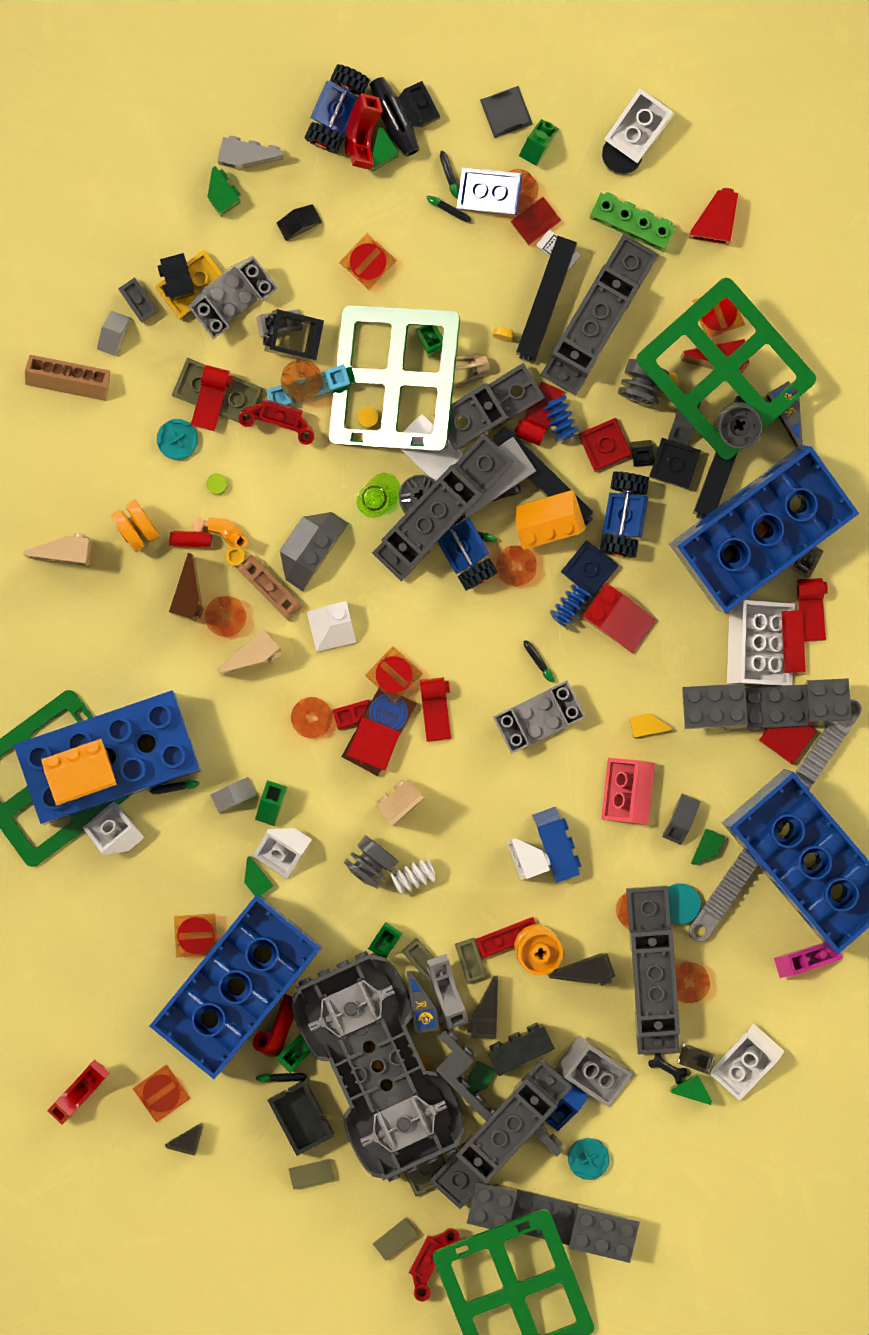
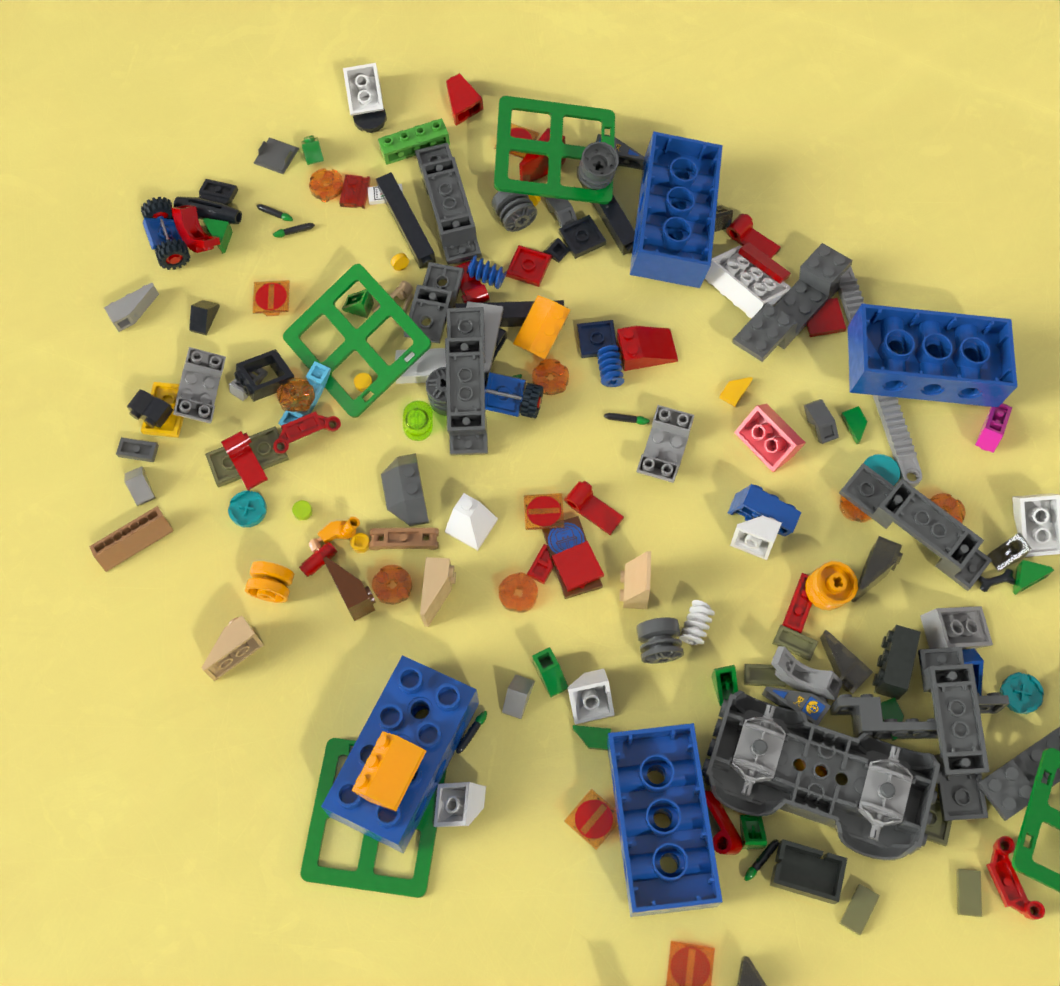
camera: 45 degrees left, 20 degrees down
(221, 194) = (137, 342): green slope -> none
(489, 191) = (309, 196): tile -> none
(625, 514) = (584, 285): plate -> none

